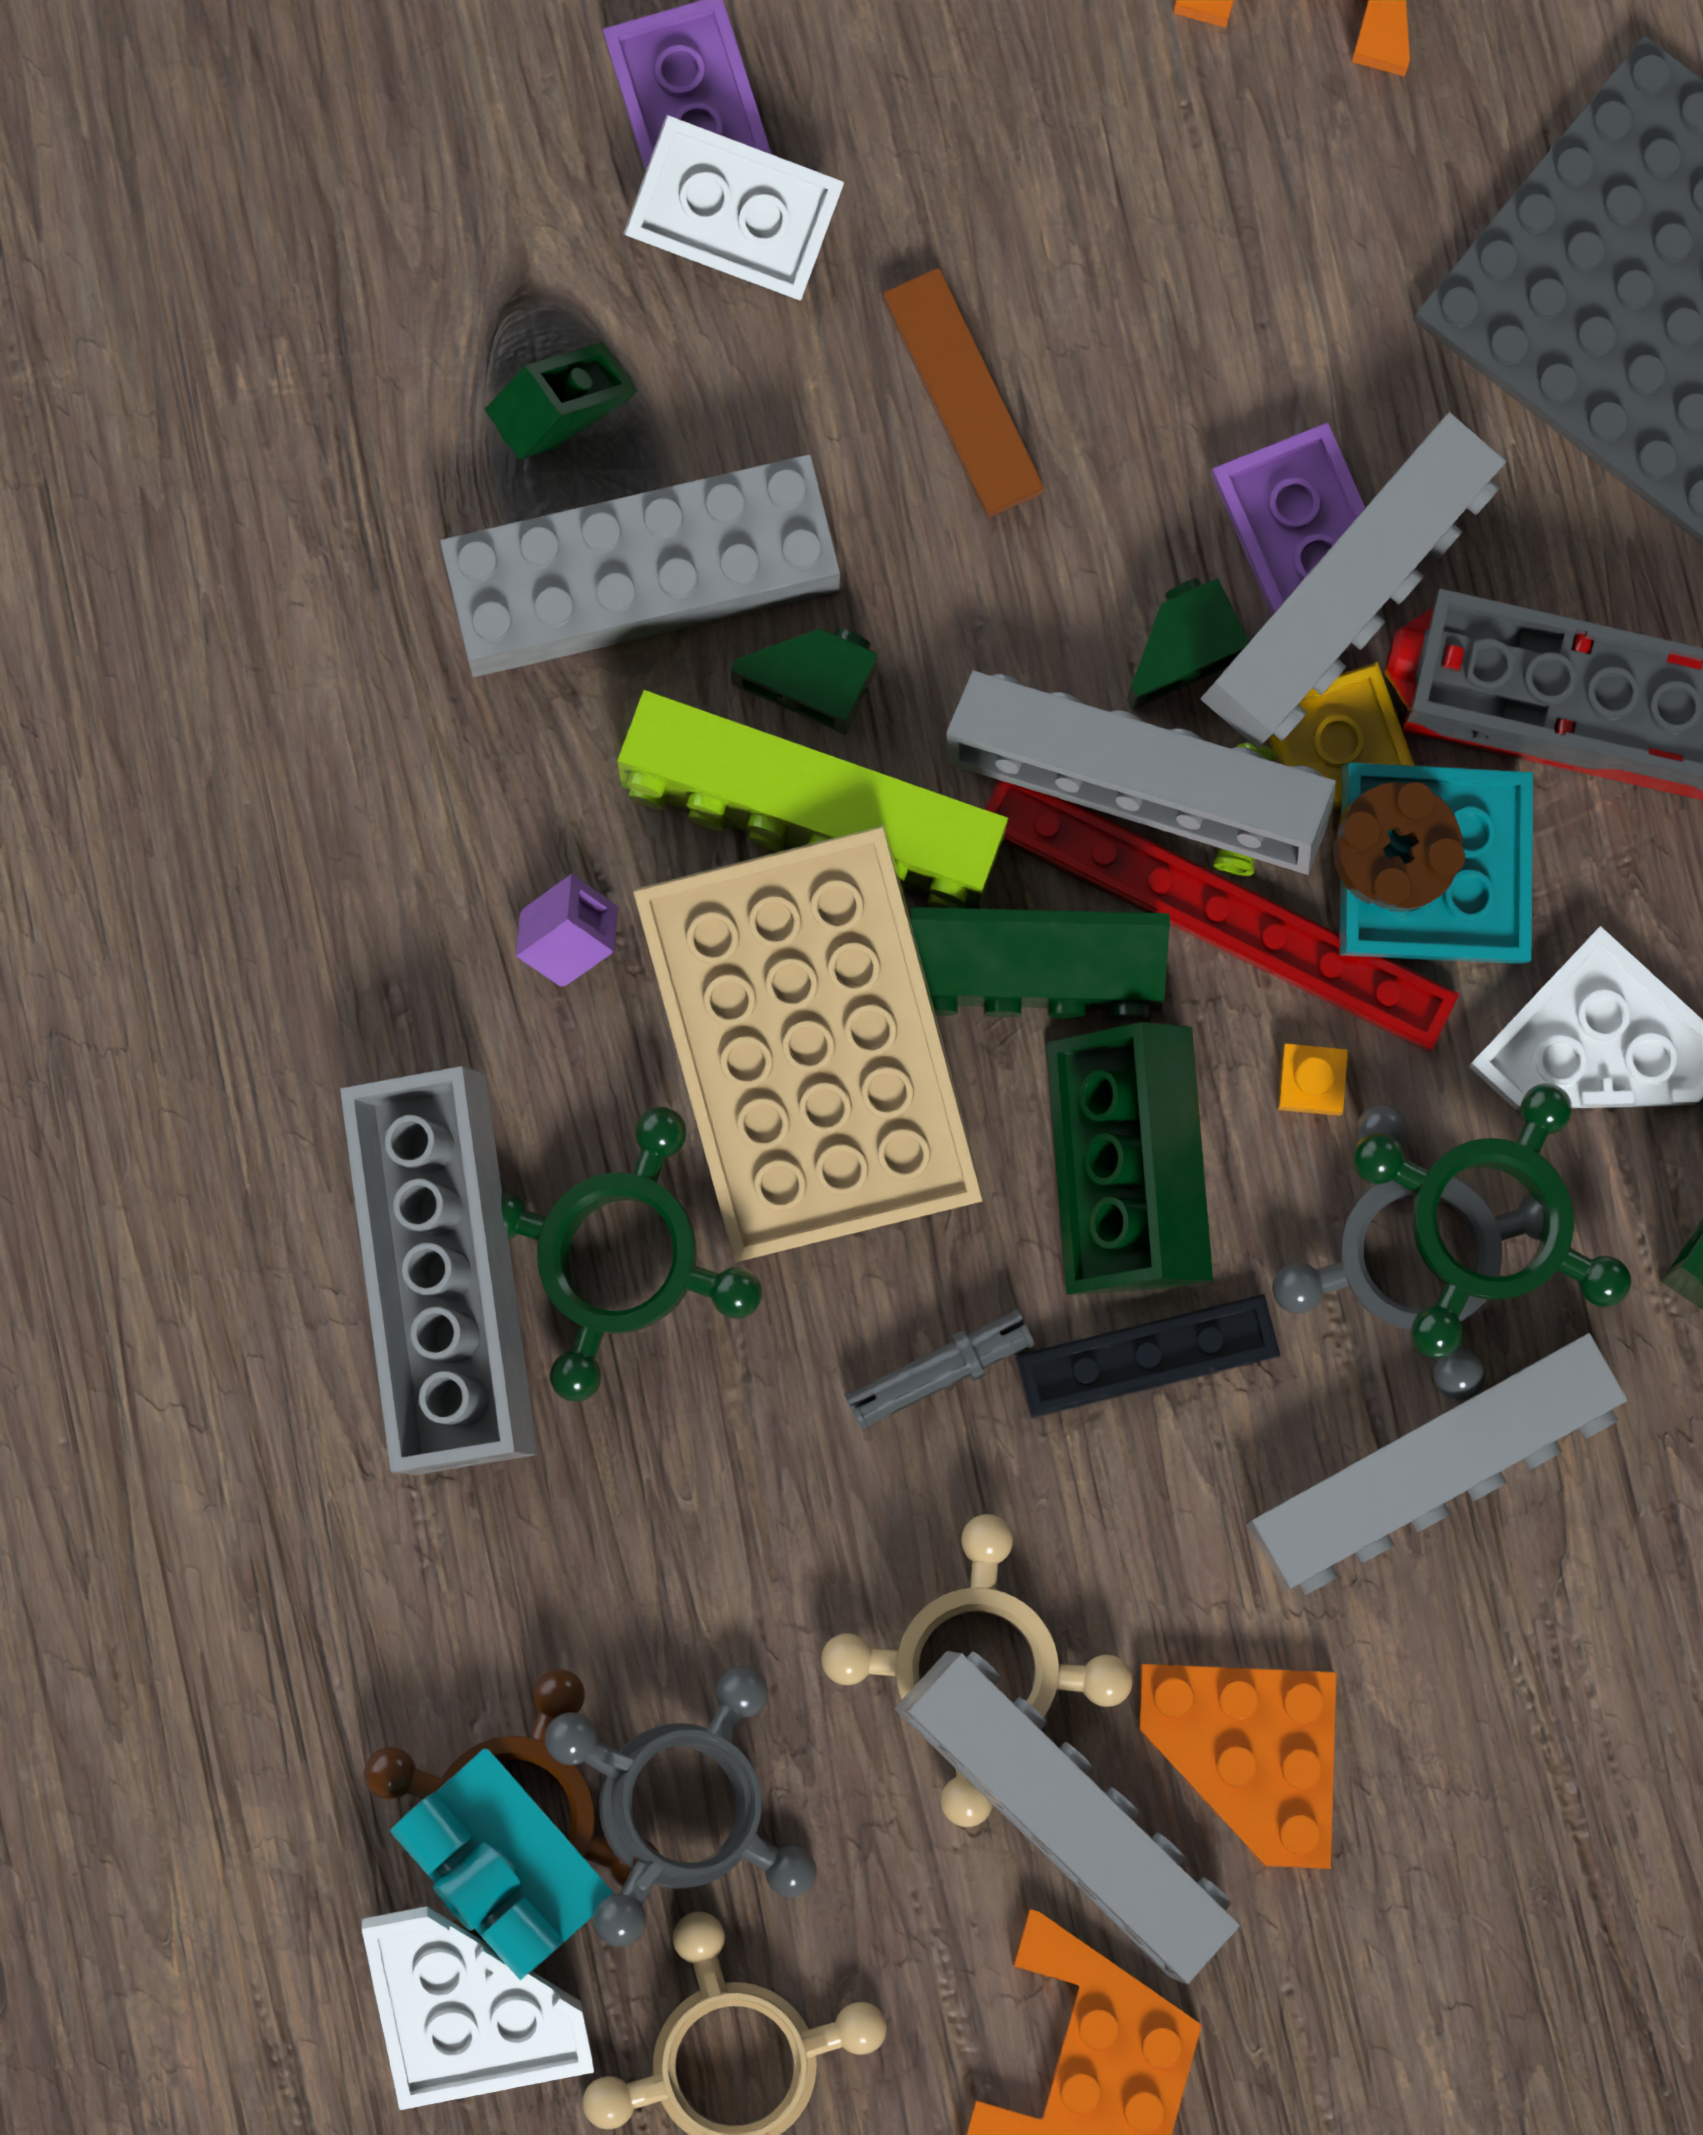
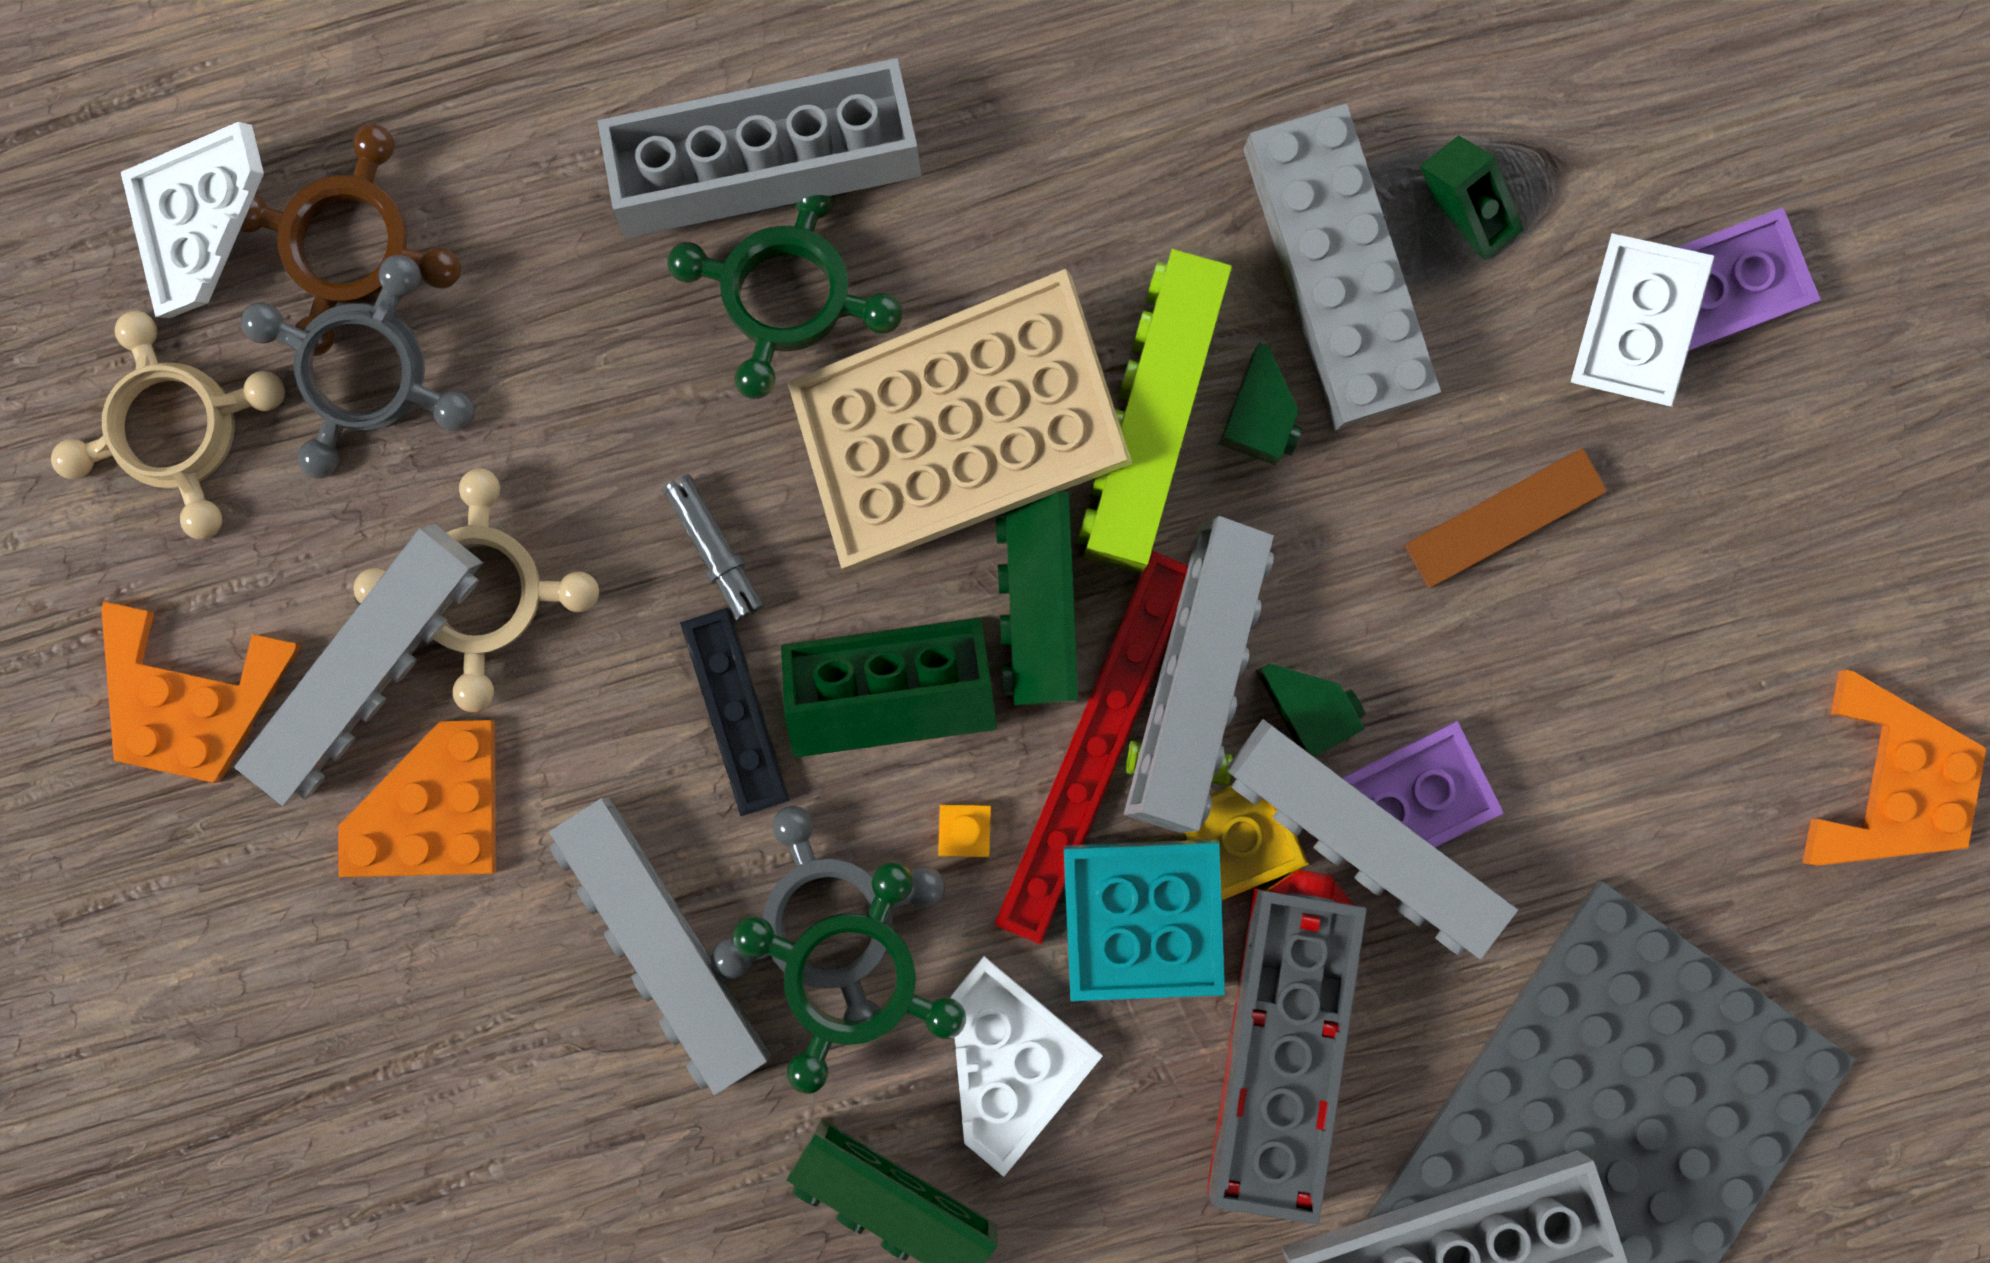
camera: 85 degrees right, 5 degrees up
(501, 1864) = (299, 228): teal panel -> none
(567, 931) = (1042, 233): medium lavender panel -> none
(1434, 852) = (1146, 916): reddish brown plate -> none

